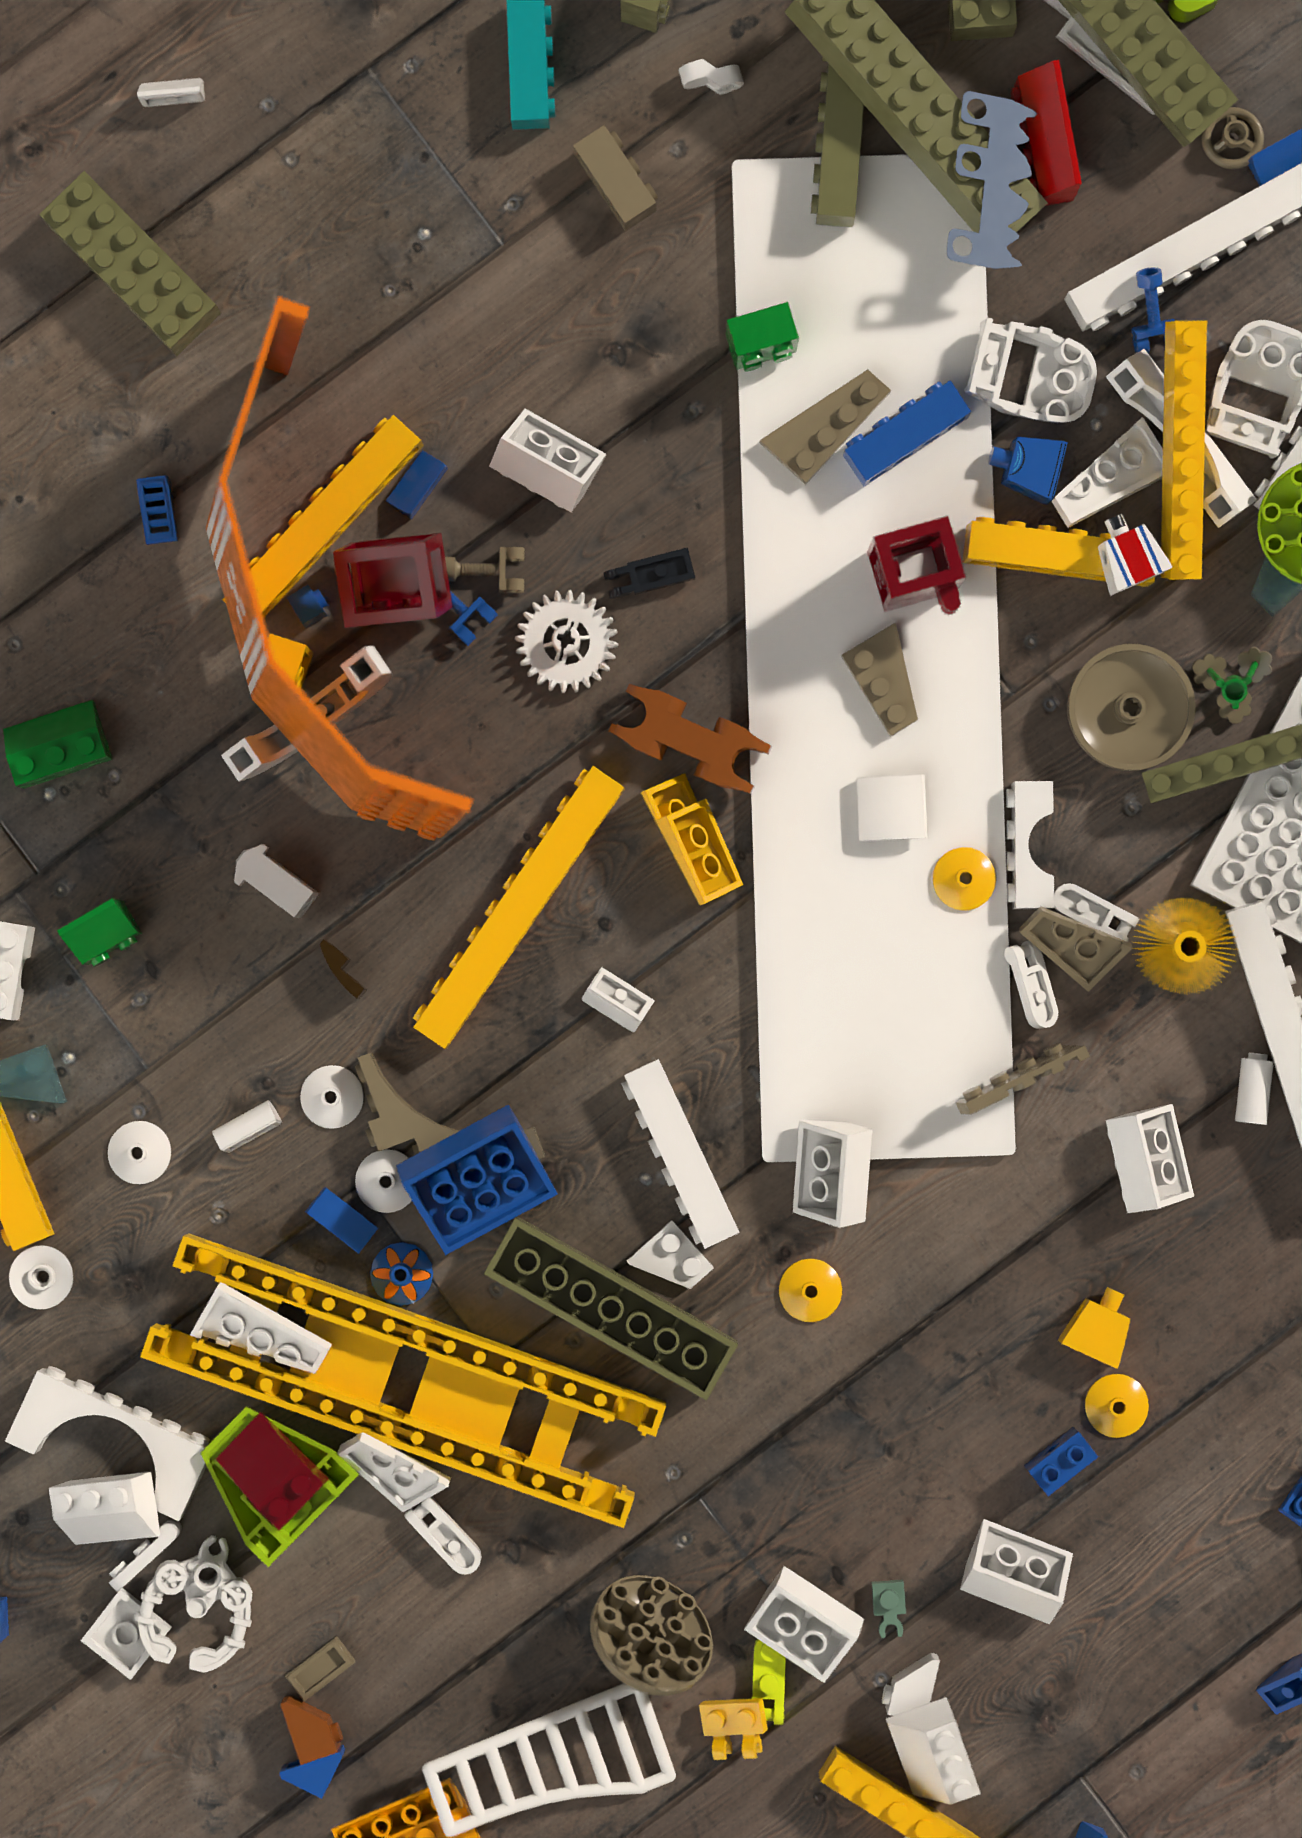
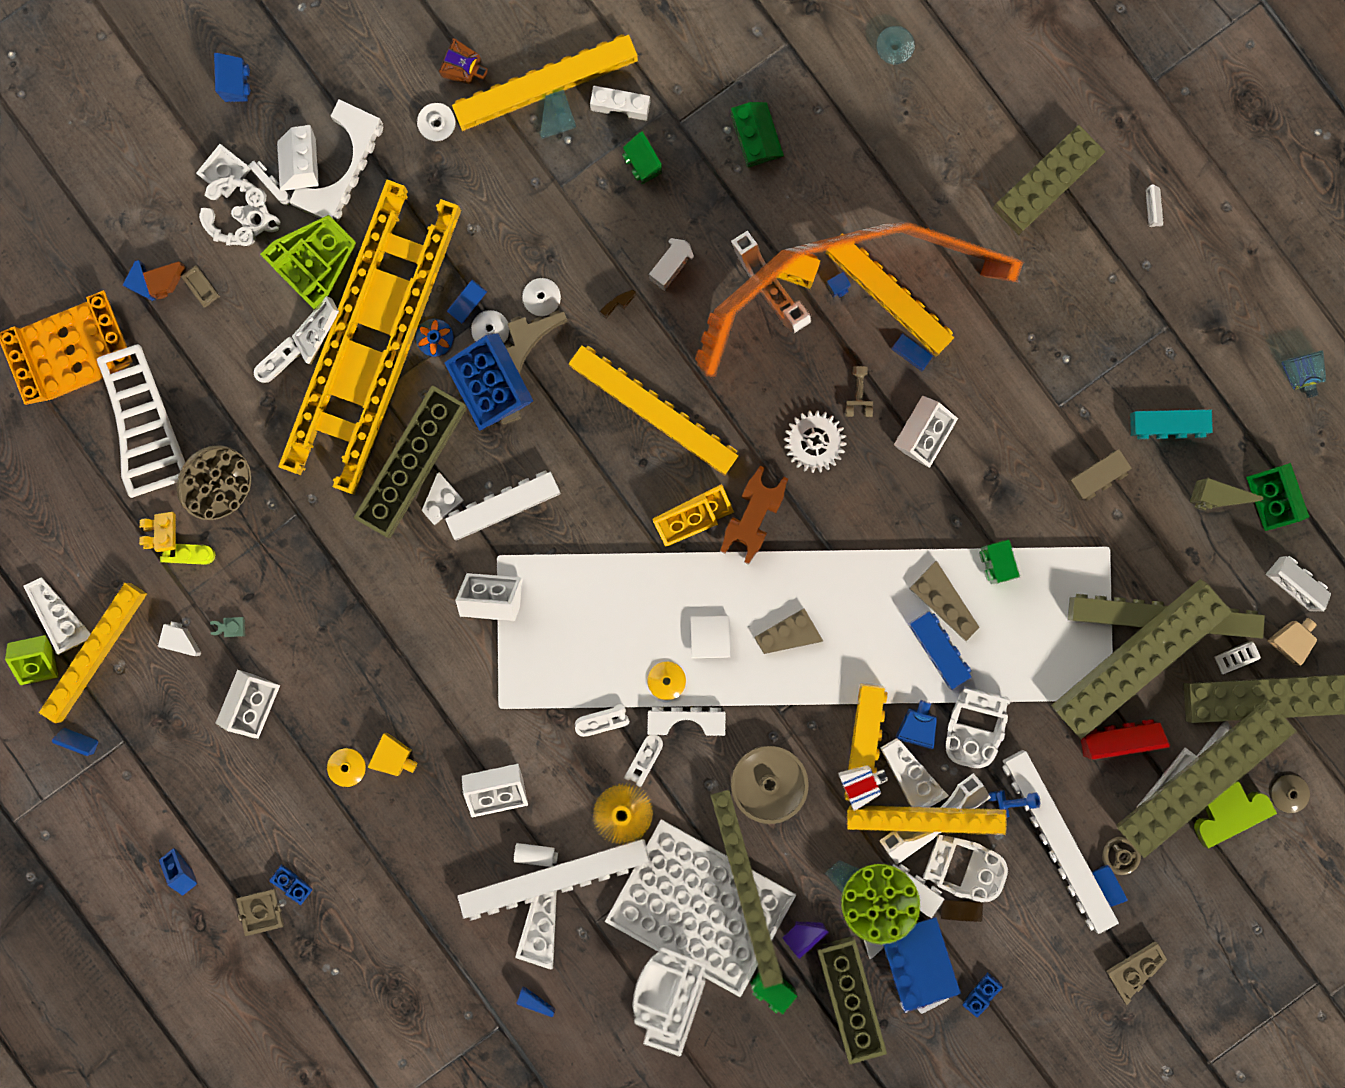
camera: 90 degrees right, 0 degrees up
(144, 499) = (906, 201): blue slope -> none
(155, 1150) = (513, 190): white dish -> none
(247, 1127) = (523, 245): white brick -> none
(249, 1325) = (403, 246): white wing -> none
(271, 1471) = (316, 256): dark red slope -> none
(393, 580) = (852, 336): dark red piece -> none
(465, 613) = (853, 359): blue bar -> none
(617, 1000) = (597, 469): white slope -> none
(653, 573) = (856, 494): black hinge -> none
(718, 79) = (1163, 529): white piece -> none
(798, 1278) = (429, 583): yellow dish -> none
(804, 1624) = (218, 575): white slope -> none
(933, 1753) = (139, 651): white slope -> none
(943, 584) = (873, 650): dark red piece -> none
(999, 166) = (1103, 709): sand blue piece -> none
(1050, 1063) = (552, 730): dark tan wing -> none
(1061, 1461) = (312, 732): blue brick -> none
(1073, 946) = (623, 747): dark tan wing -> none
(1235, 697) = (776, 847): dark tan plant -> none

